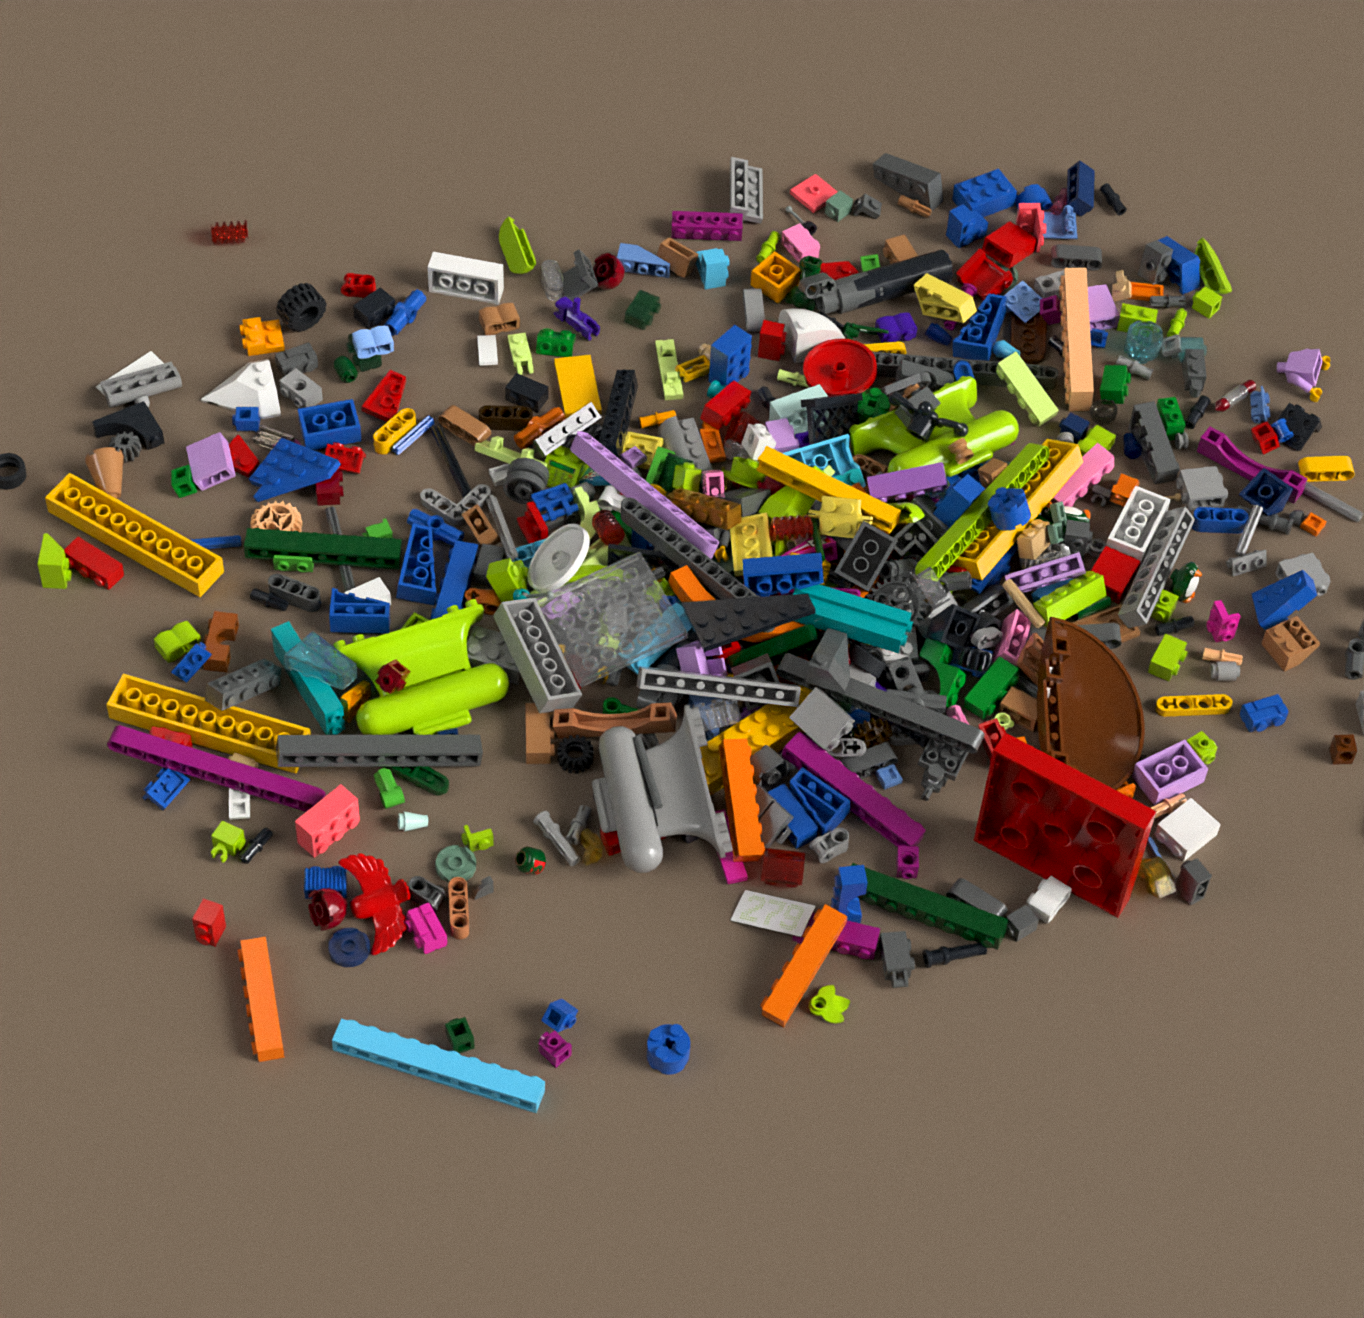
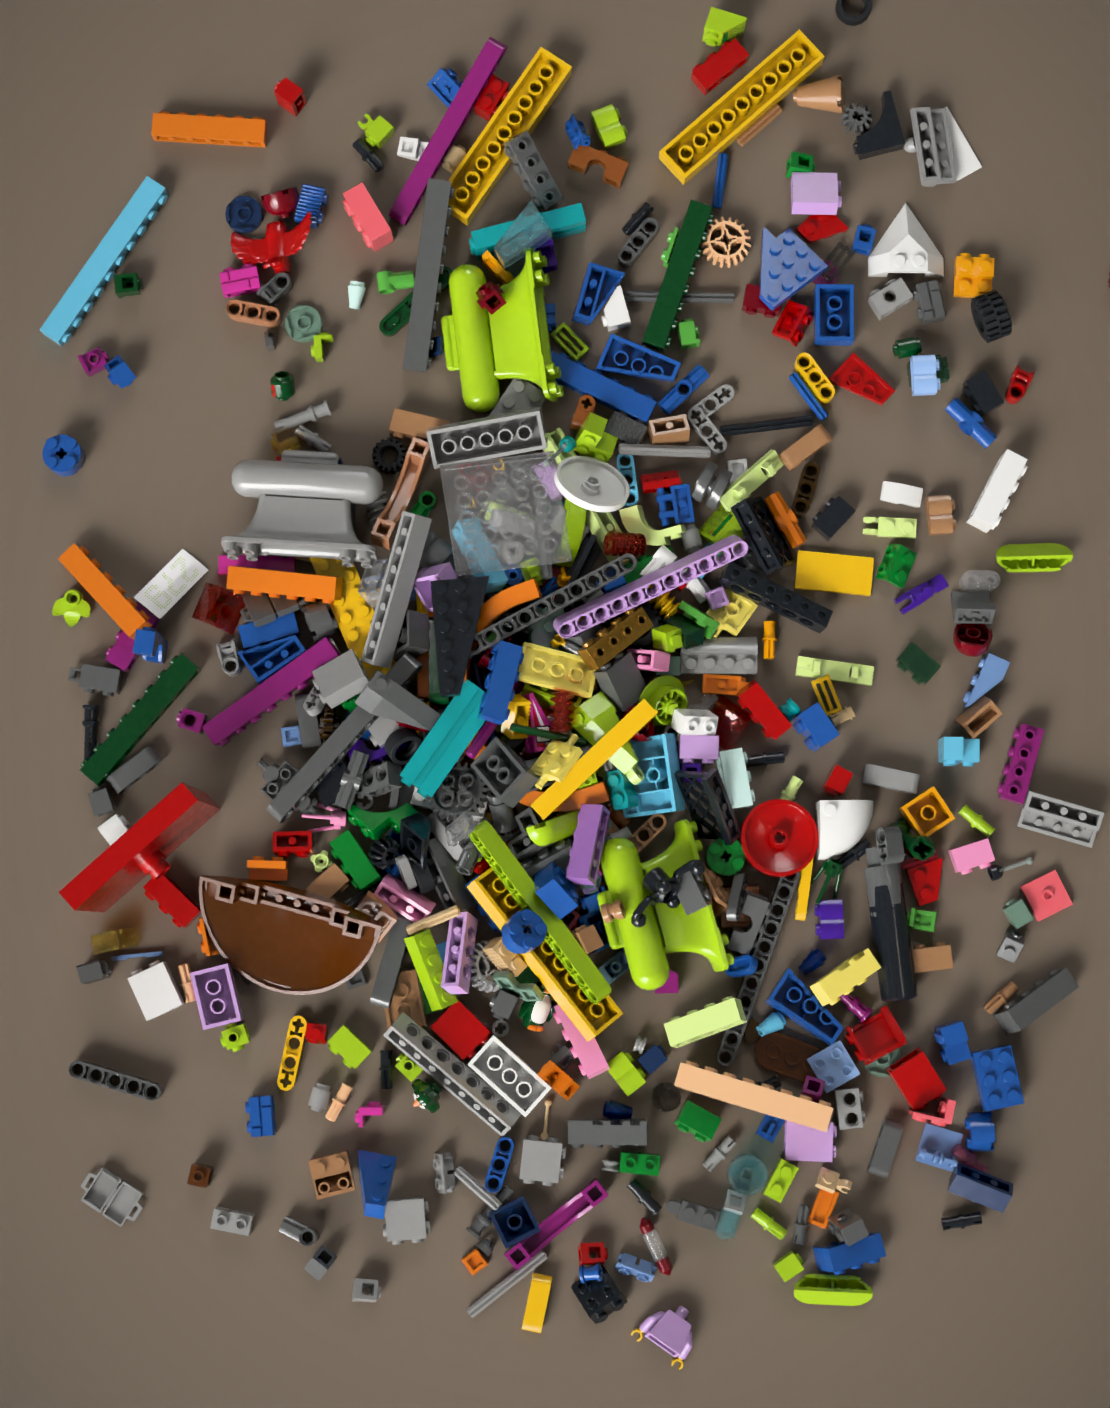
camera: 110 degrees right, 30 degrees up
(647, 772) = (321, 499): dark grey bar -> none
(1166, 684) = (316, 1033): none -> red brick
(1288, 851) = (106, 1080): none -> dark grey beam

